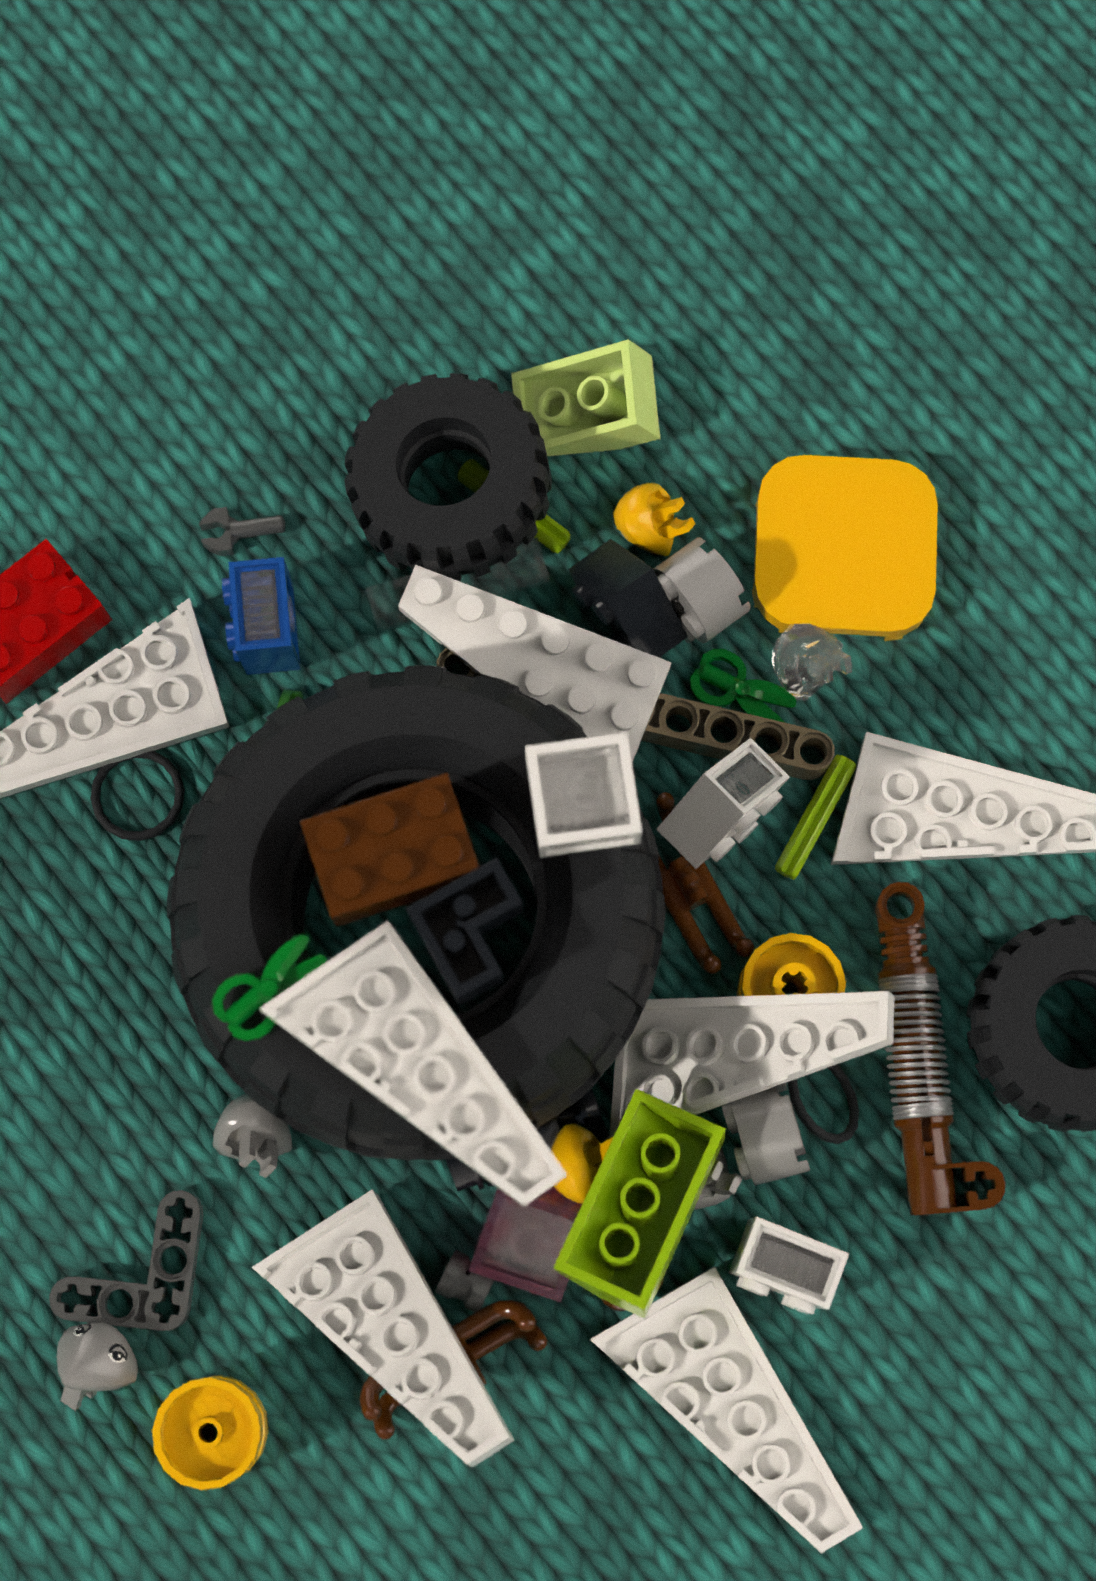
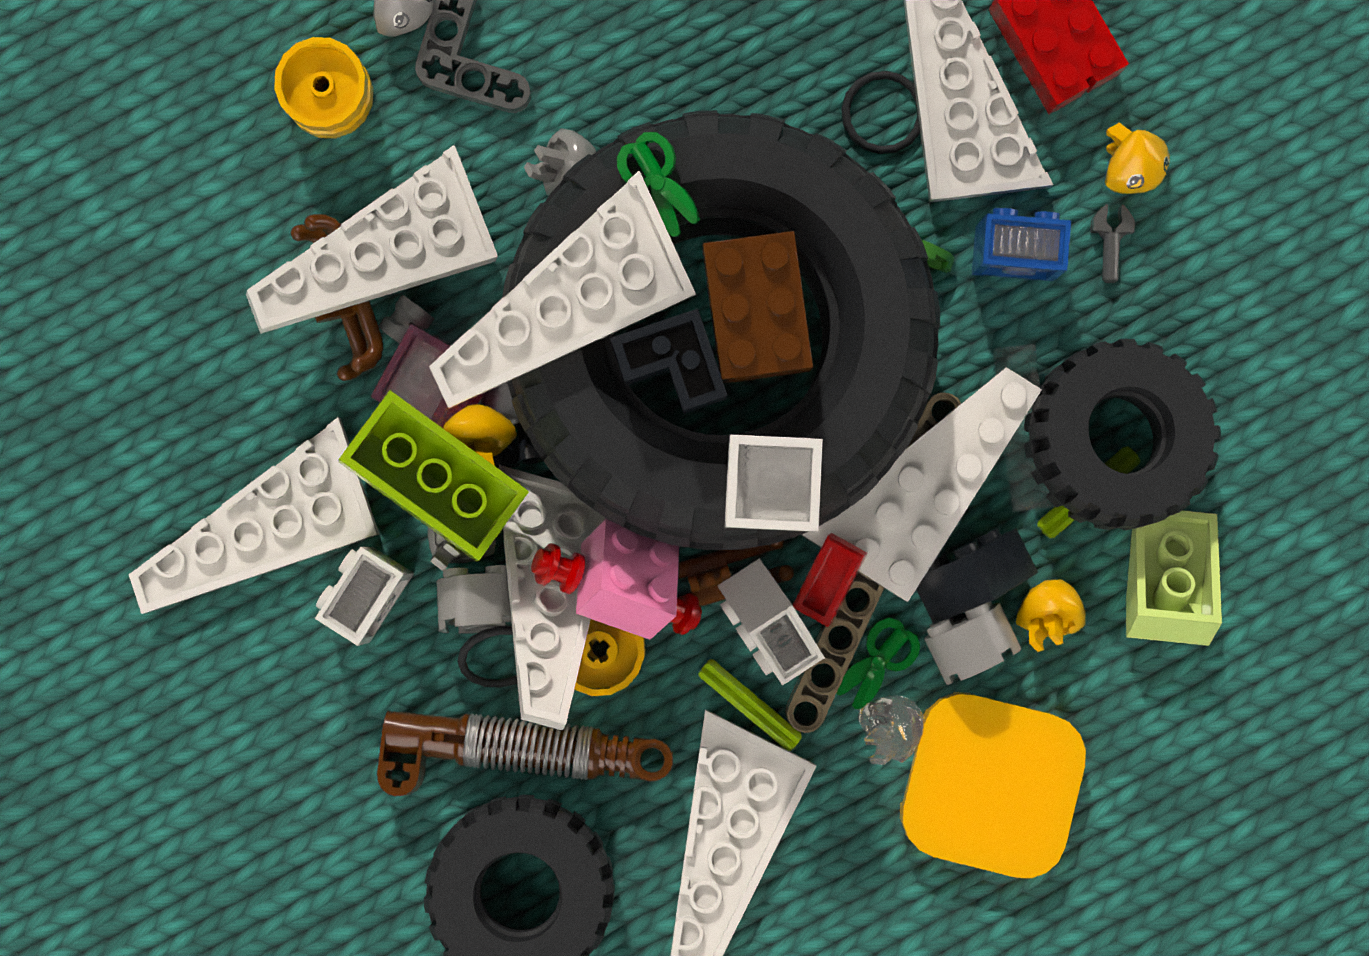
camera: 100 degrees right, 10 degrees up
(149, 514) = (1137, 160): none -> yellow piece
(667, 748) = (829, 579): none -> red tile
(714, 969) = (622, 581): none -> bright pink brick

